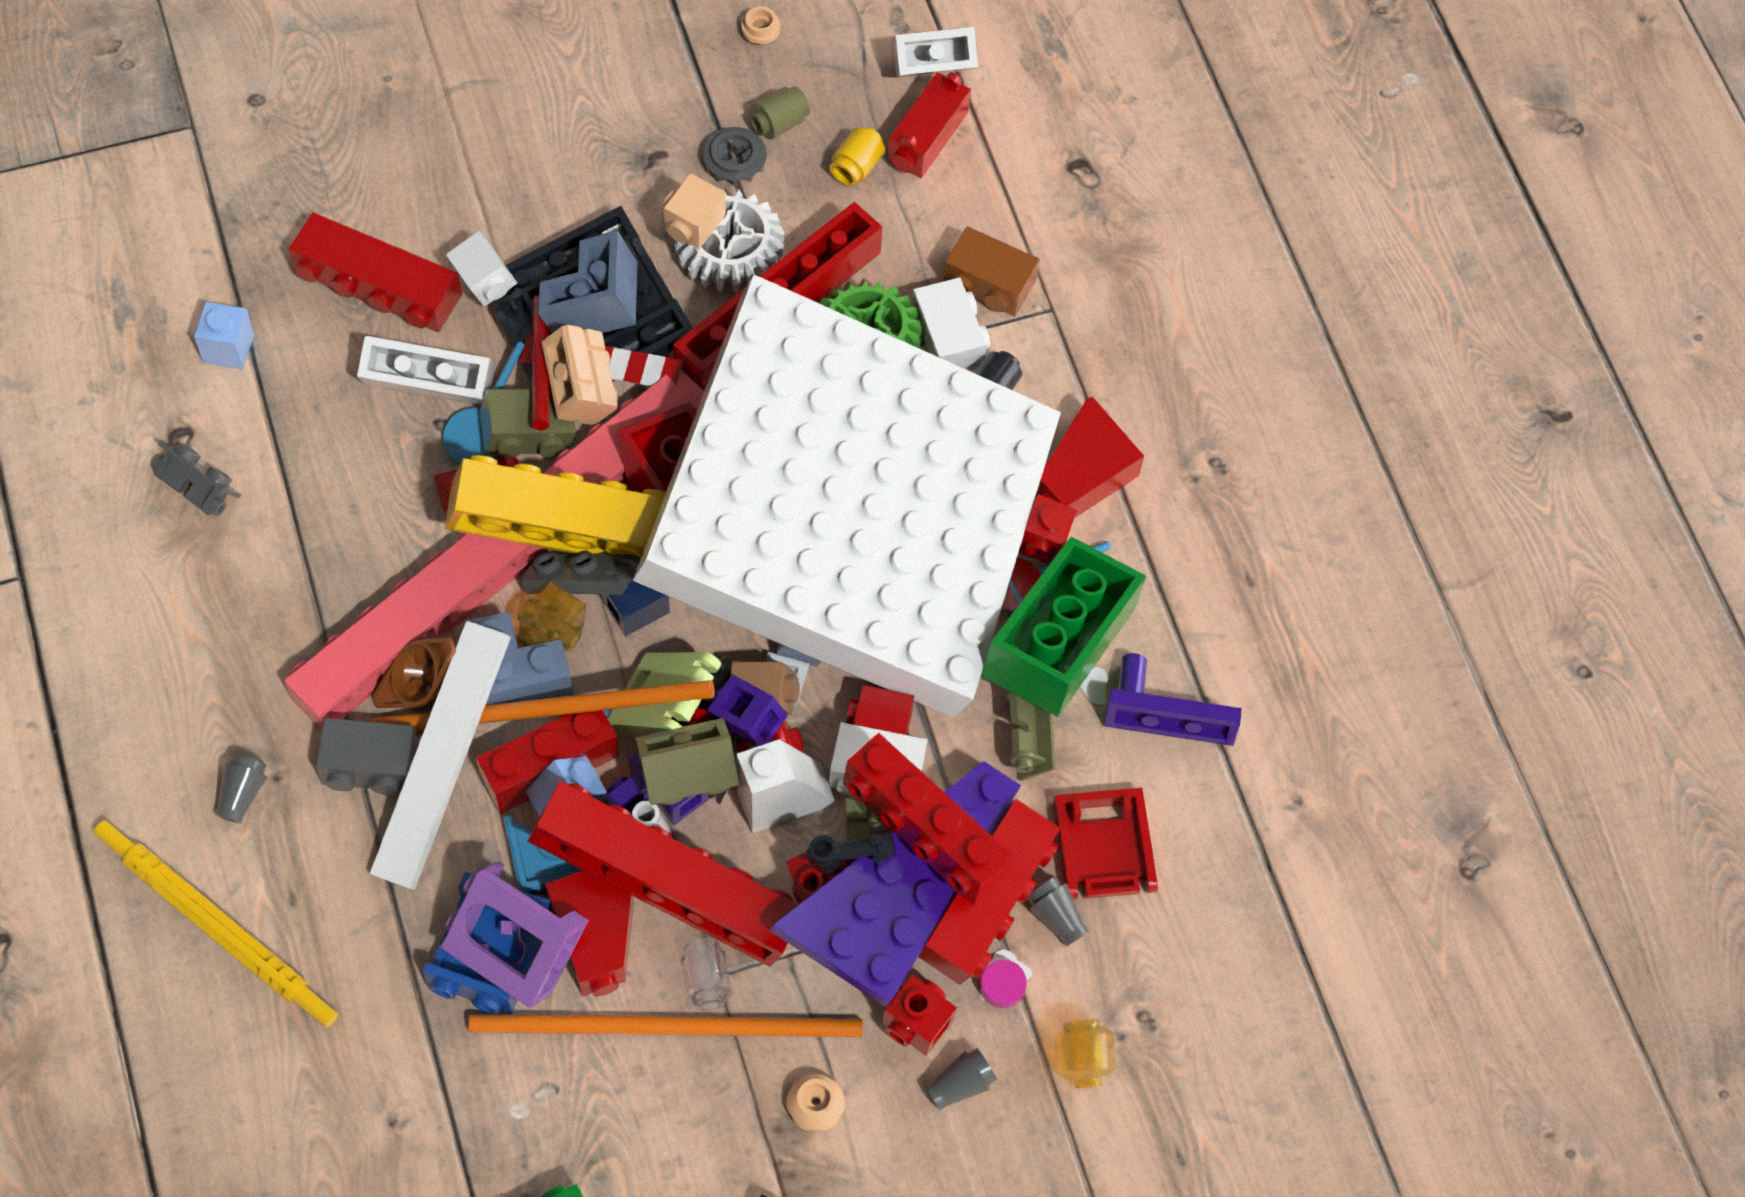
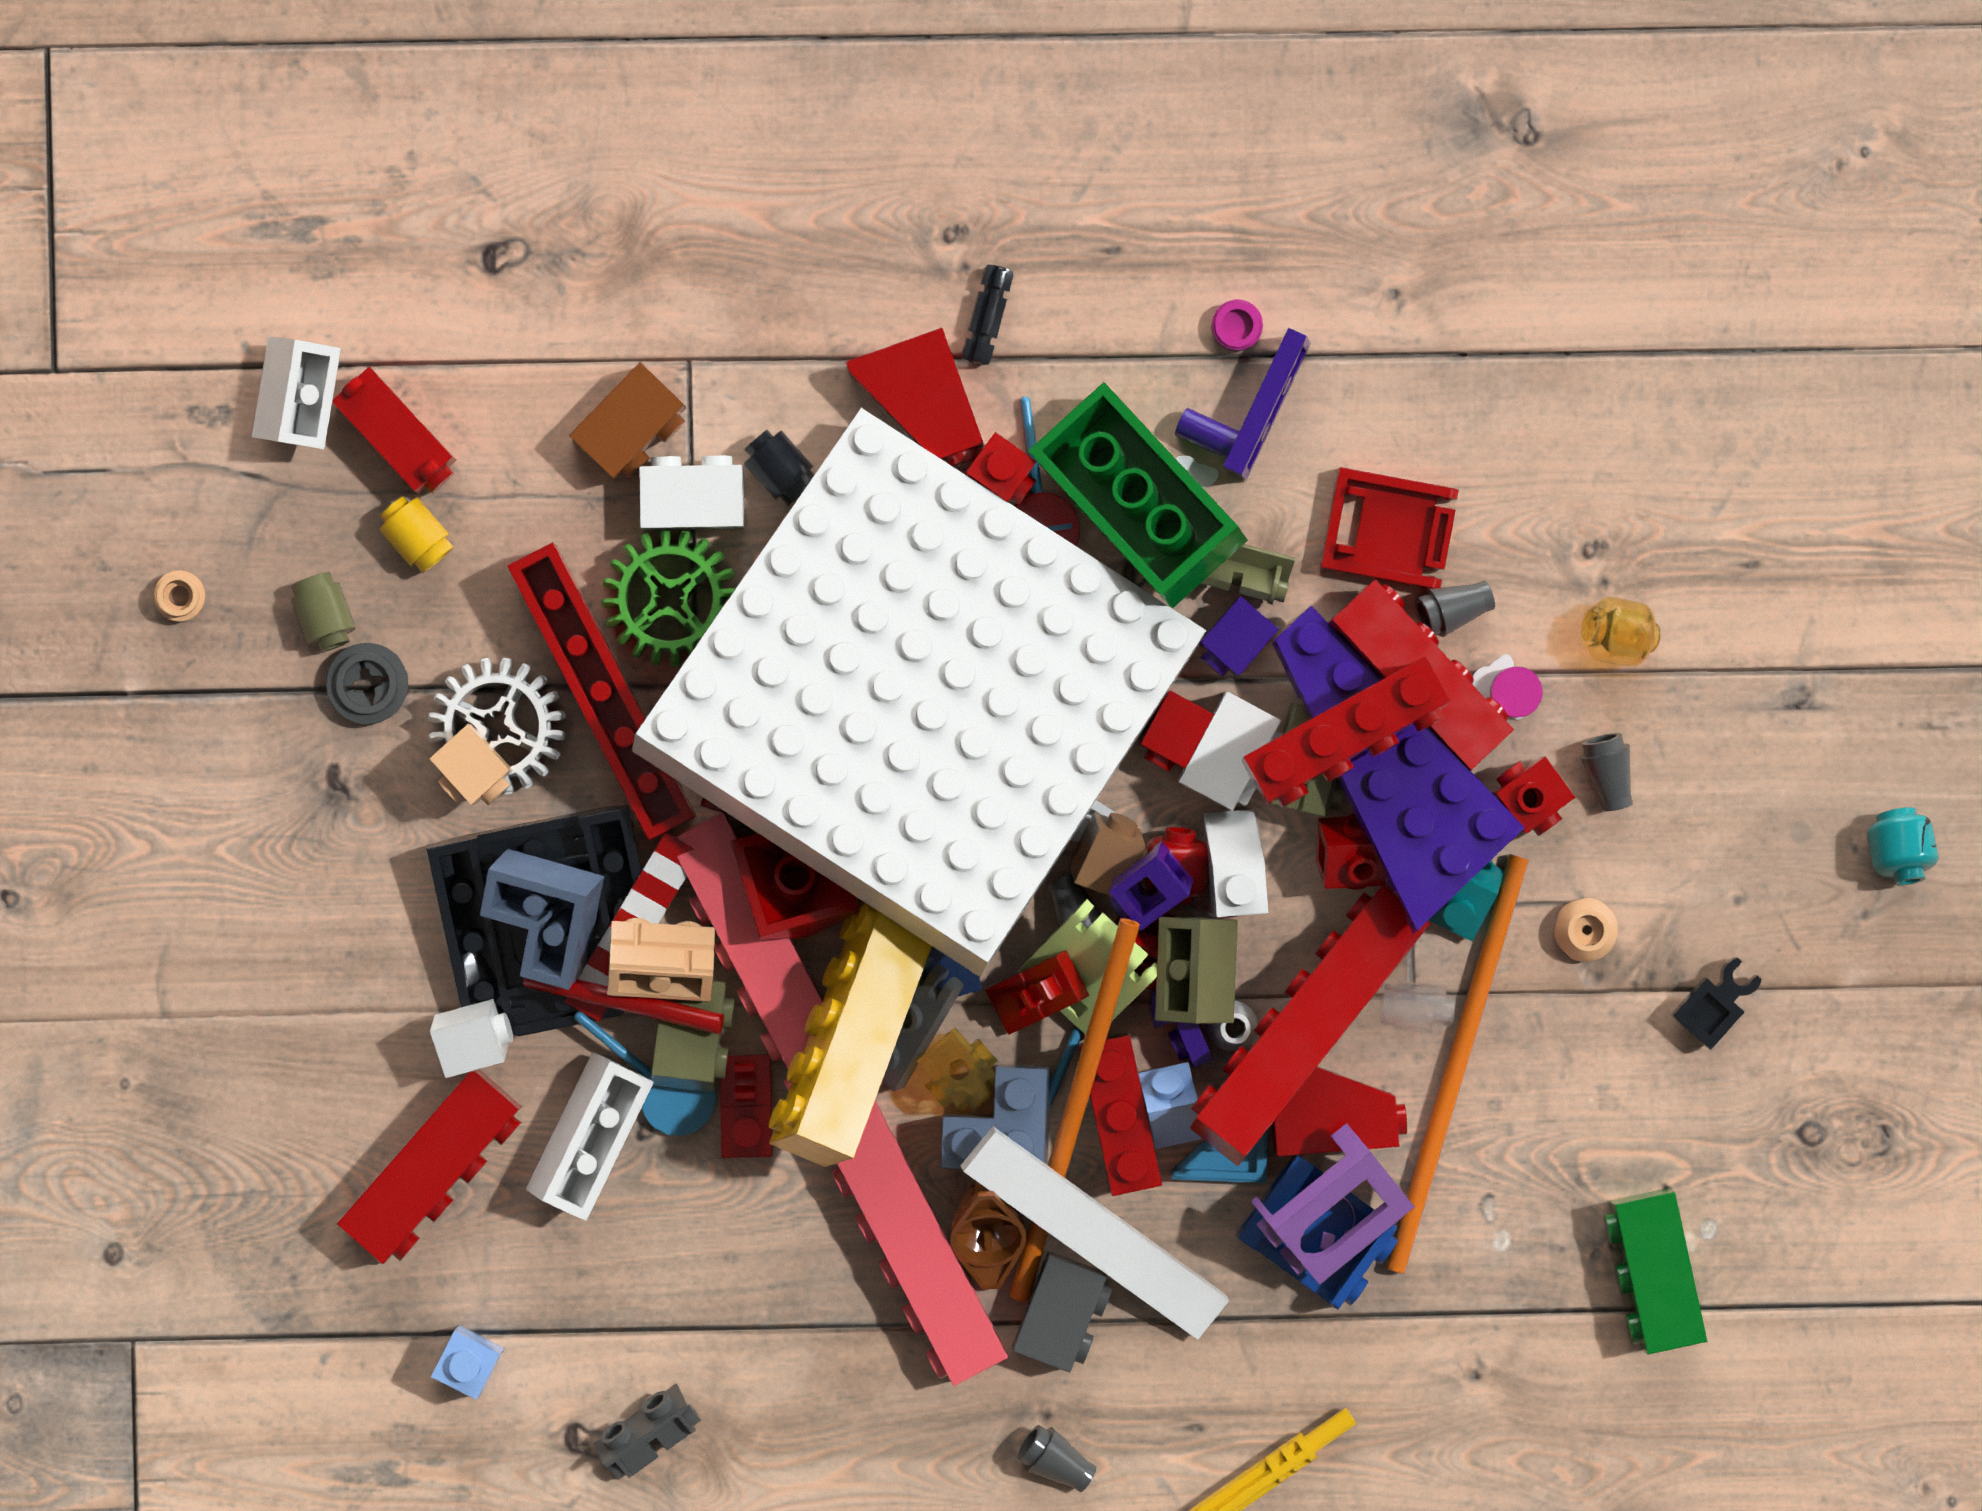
camera: 70 degrees left, 25 degrees up
(632, 662) = (1037, 992): none -> red plate
(814, 989) = (1471, 904): none -> teal bracket
(828, 855) = (1348, 846): black bar -> none
(972, 741) = (1236, 638): none -> dark purple brick
(1165, 498) = (987, 314): none -> black axle
(1226, 684) = (1237, 325): none -> dark pink tile

